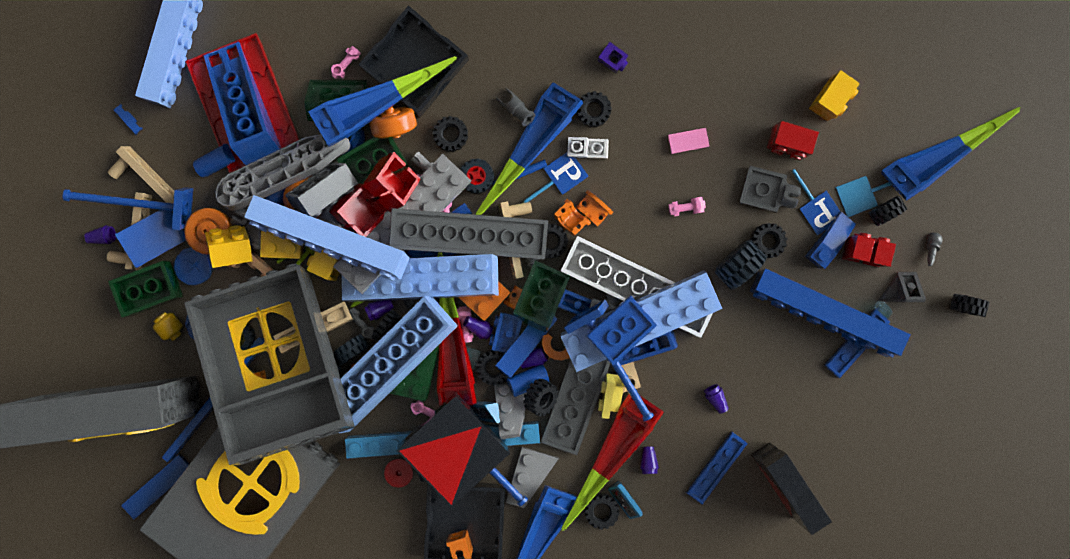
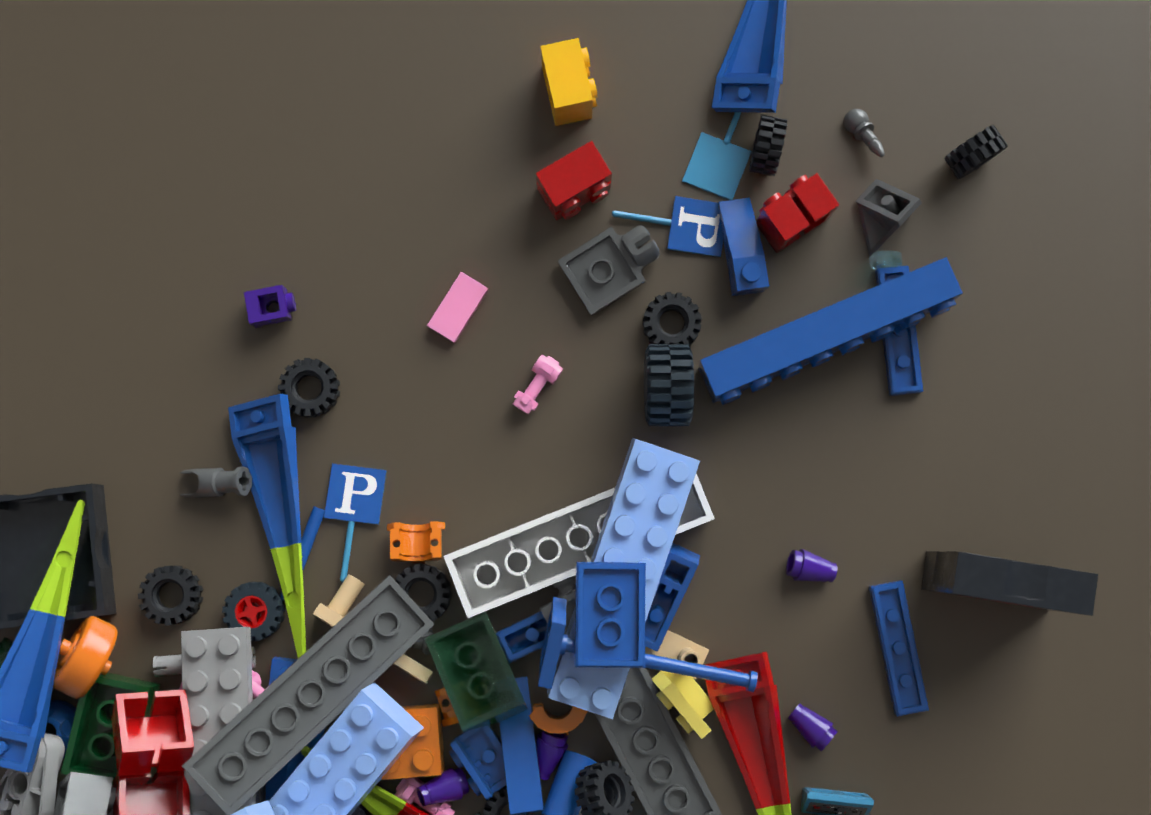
camera: 50 degrees left, 5 degrees down
(587, 148) = (350, 439): white slope -> none
(594, 208) = (432, 501): orange piece -> none

